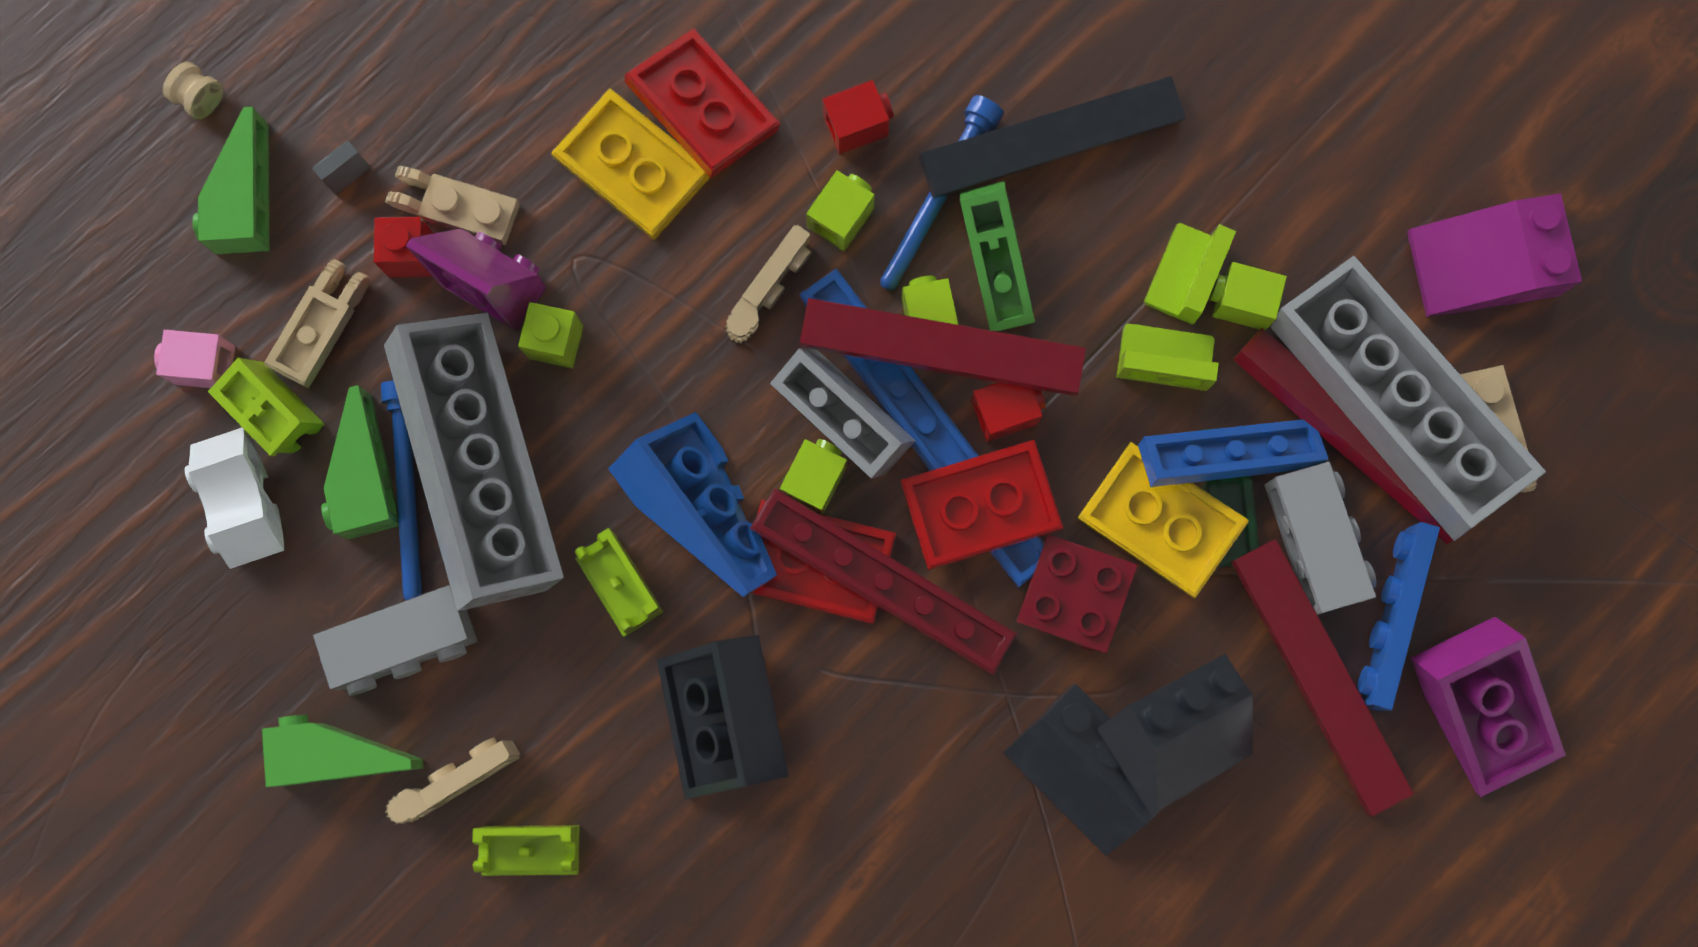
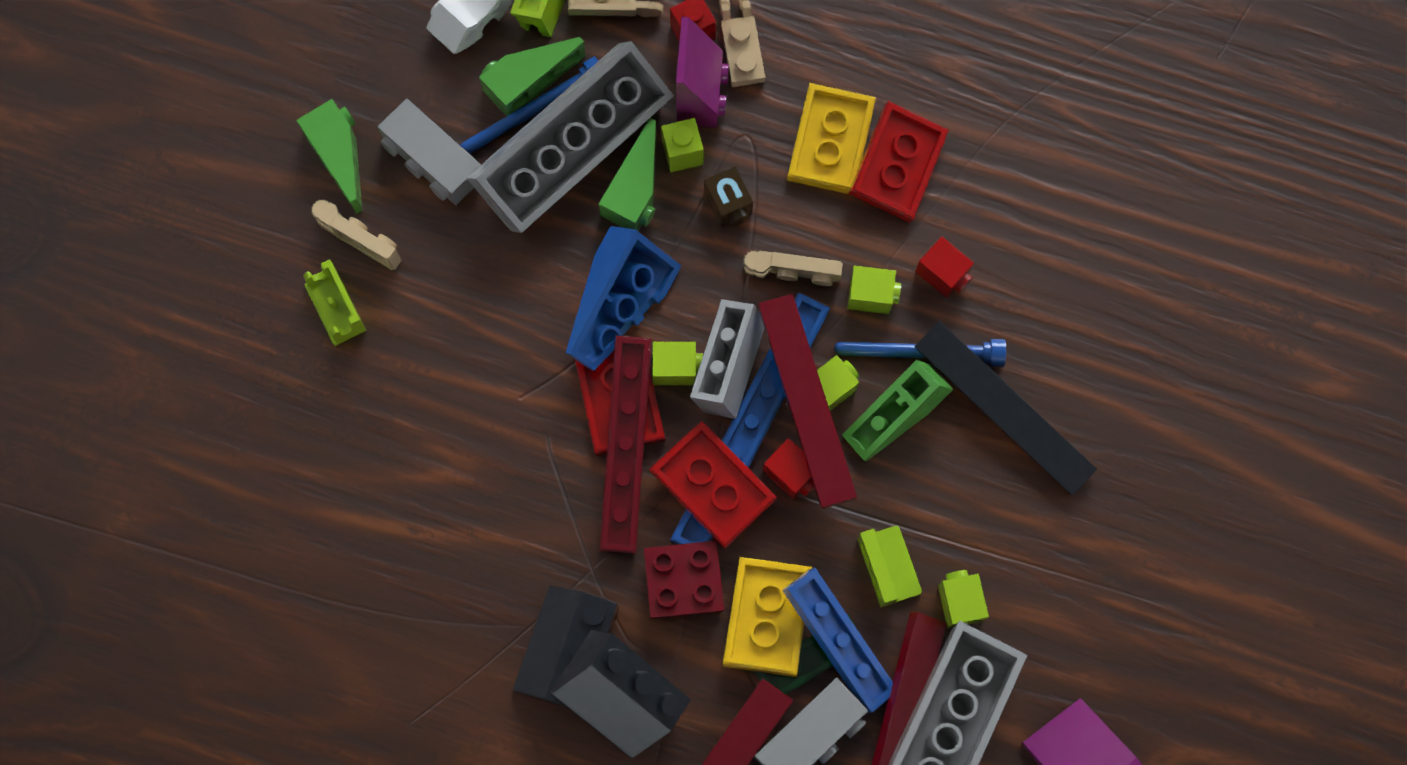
camera: 60 degrees right, 5 degrees down
(573, 417) = (631, 192): none -> bright green slope
(618, 582) = (539, 273): lime hinge -> none
(644, 314) = (728, 197): none -> dark brown brick
(722, 716) = (482, 384): black slope -> none
(1188, 271) = (960, 550): lime panel -> none

